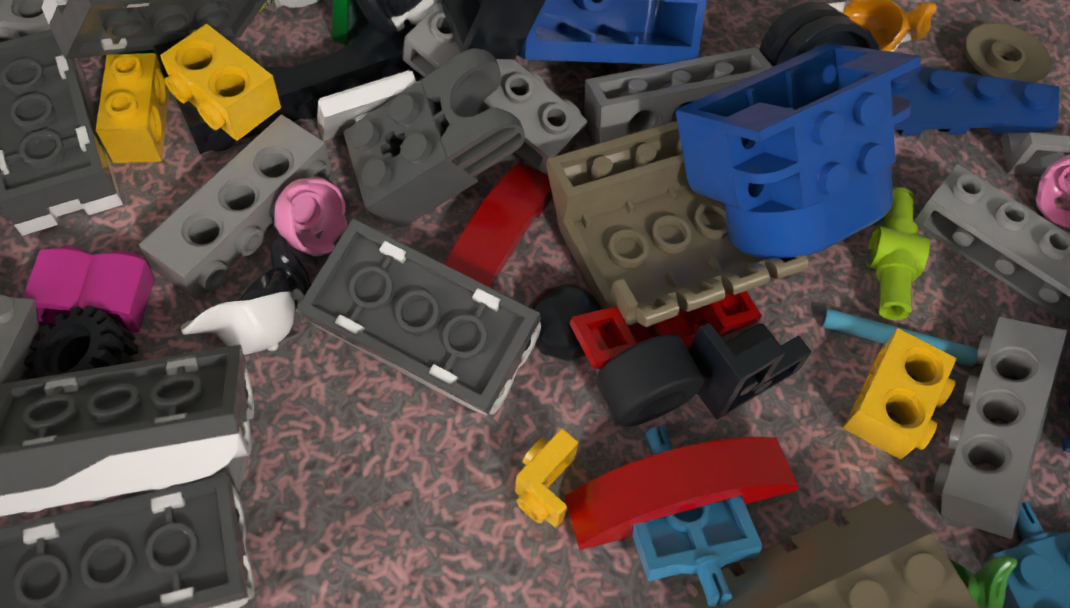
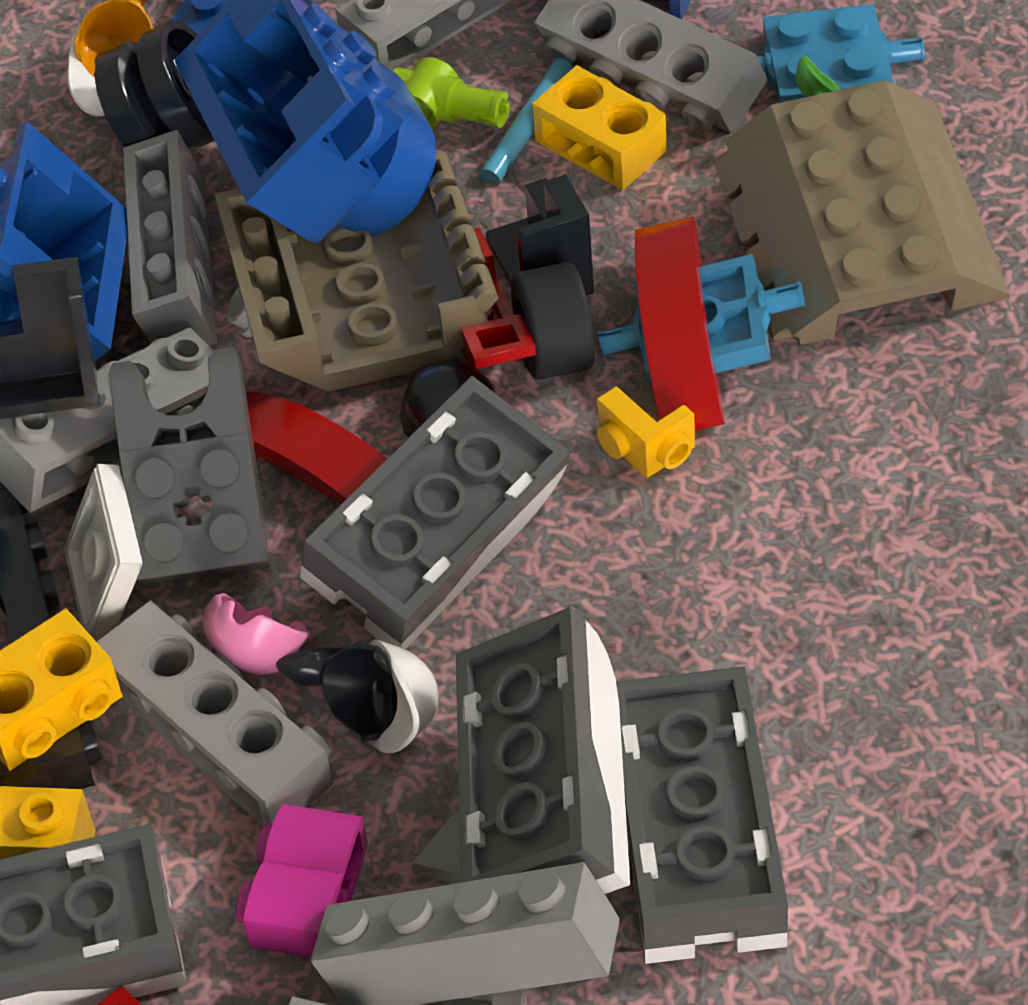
camera: 70 degrees left, 10 degrees down
(82, 334) = (394, 833): black tyre -> none

